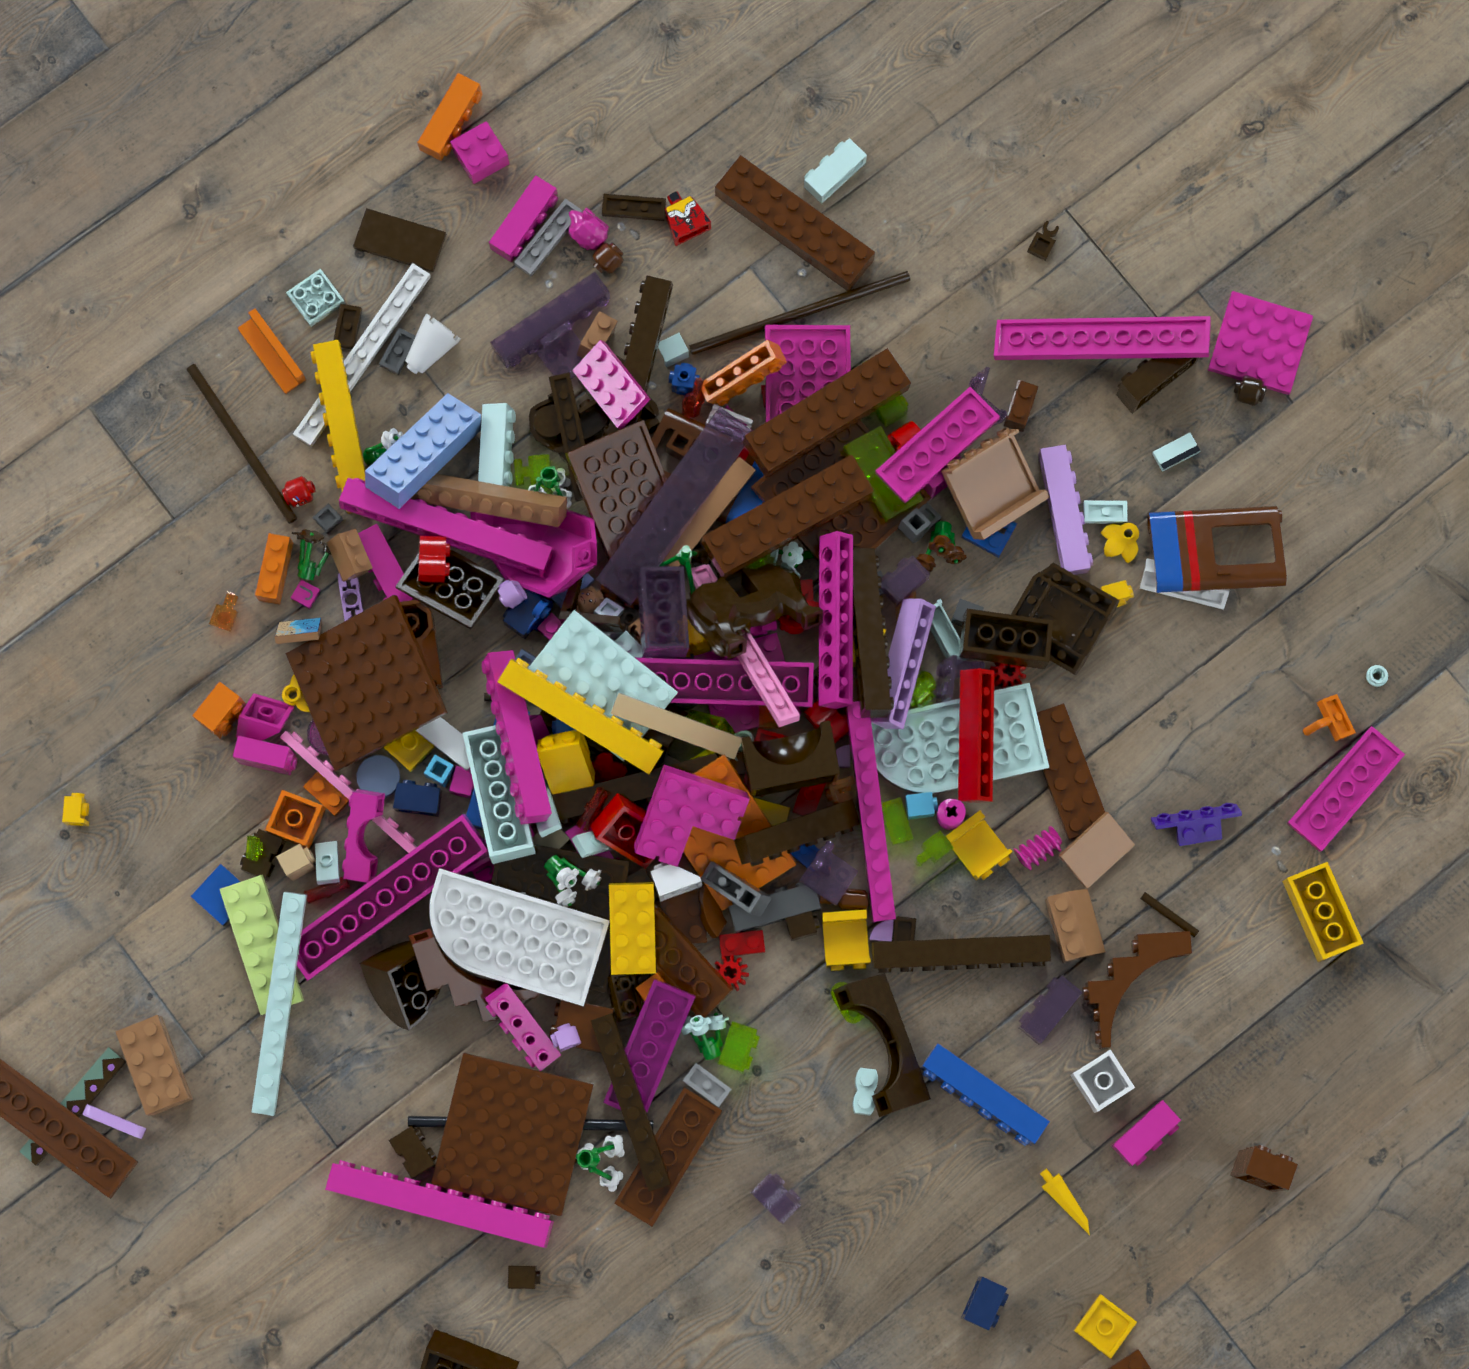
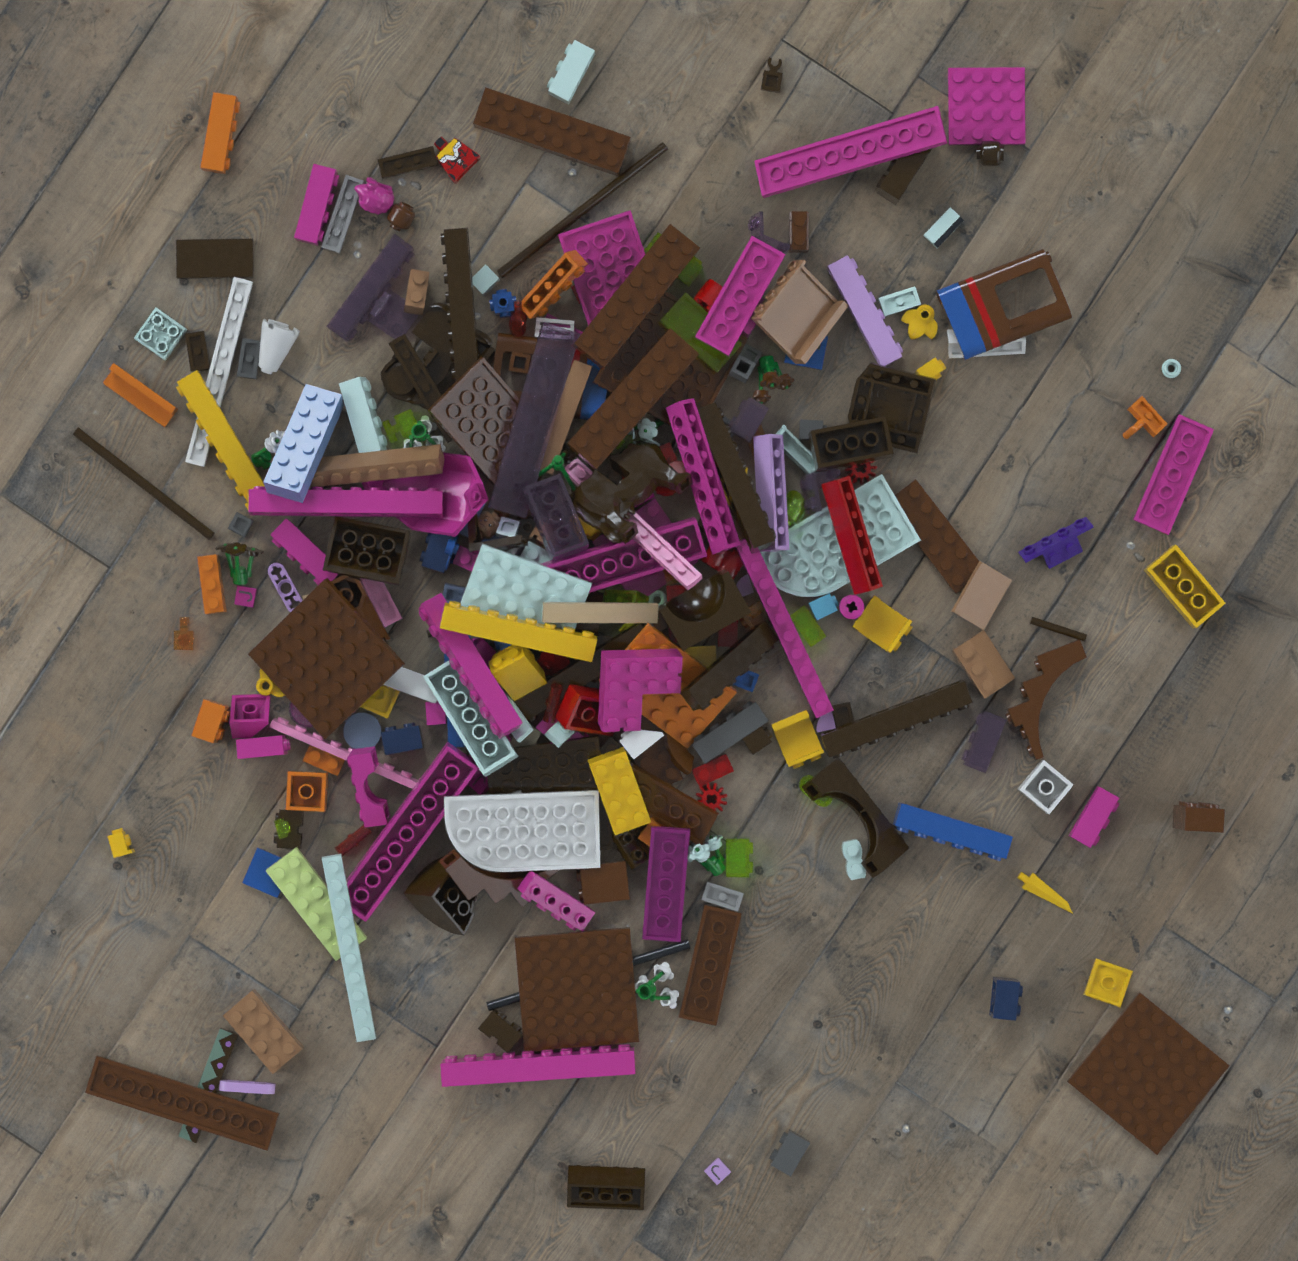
camera: 20 degrees left, 10 degrees up
(297, 861) = (321, 826): tan brick -> none
(298, 491) = (208, 510): red head -> none
(298, 630) = (252, 631): tile -> none
(327, 862) = (346, 818): light aqua plate -> none
(349, 555) = (272, 553): medium nougat brick -> none
(433, 559) = (345, 536): red brick -> none
(439, 771) = (413, 710): medium azure brick -> none
(448, 644) = (382, 601): none -> bright pink plate
(480, 152) = (257, 157): dark pink brick -> none
(511, 593) = (421, 541): lavender plate -> none
(523, 1277) = (625, 1100): dark brown brick -> none
(565, 1037) = (594, 898): lavender plate -> none
(566, 877) = (553, 770): white plant -> none
(611, 384) = (444, 334): plate -> none
(630, 1102) = (665, 932): dark brown plate -> none
(736, 889) = (694, 730): dark grey slope -> none
(776, 1197) = (809, 969): clear purple brick -> none
(828, 874) = (766, 691): clear purple plate -> none
(851, 900) = (786, 705): reddish brown arm -> none
(934, 848) = (847, 639): clear neon green brick -> none
(1039, 848) = (933, 610): dark pink piece -> none

